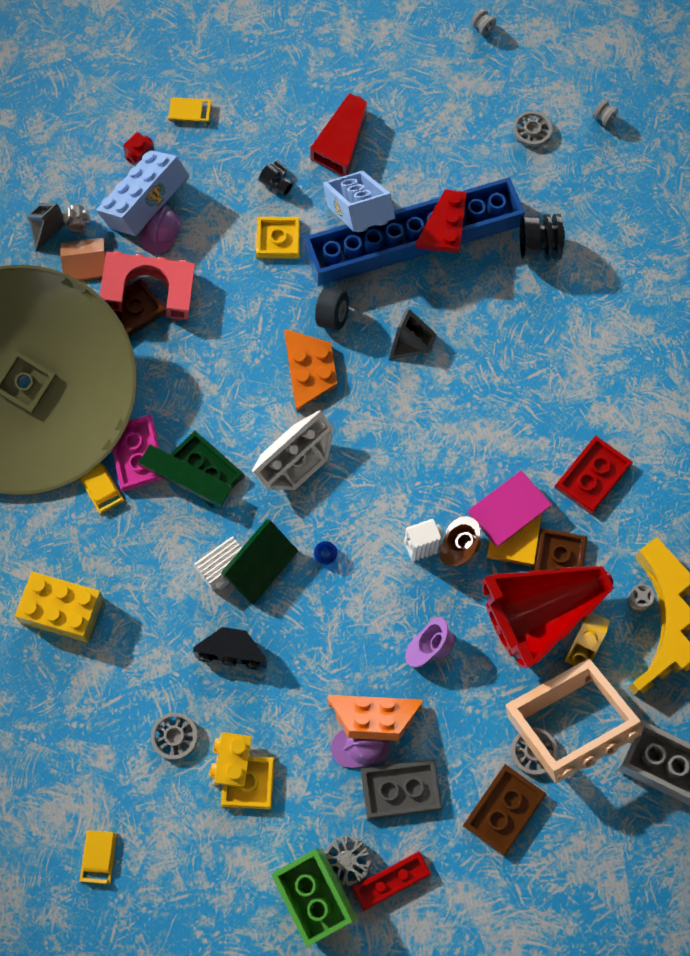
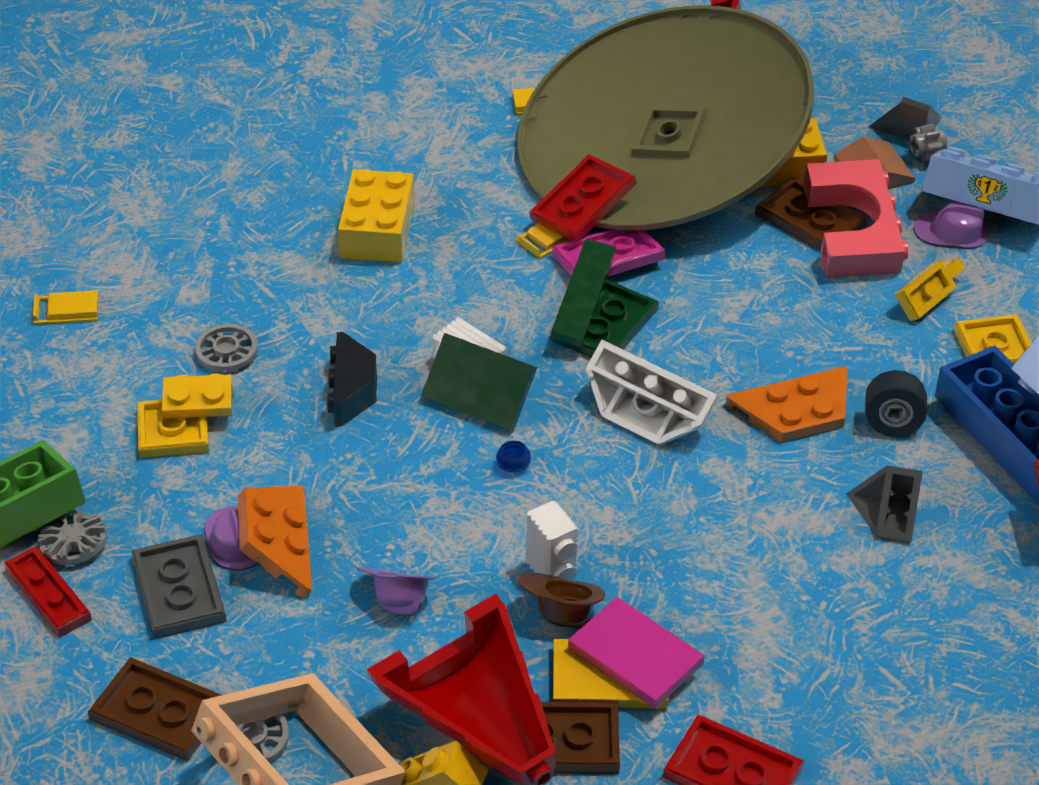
camera: 80 degrees right, 25 degrees down
(83, 456) = (582, 198): none -> red tile
(221, 259) = (929, 287): none -> yellow hinge

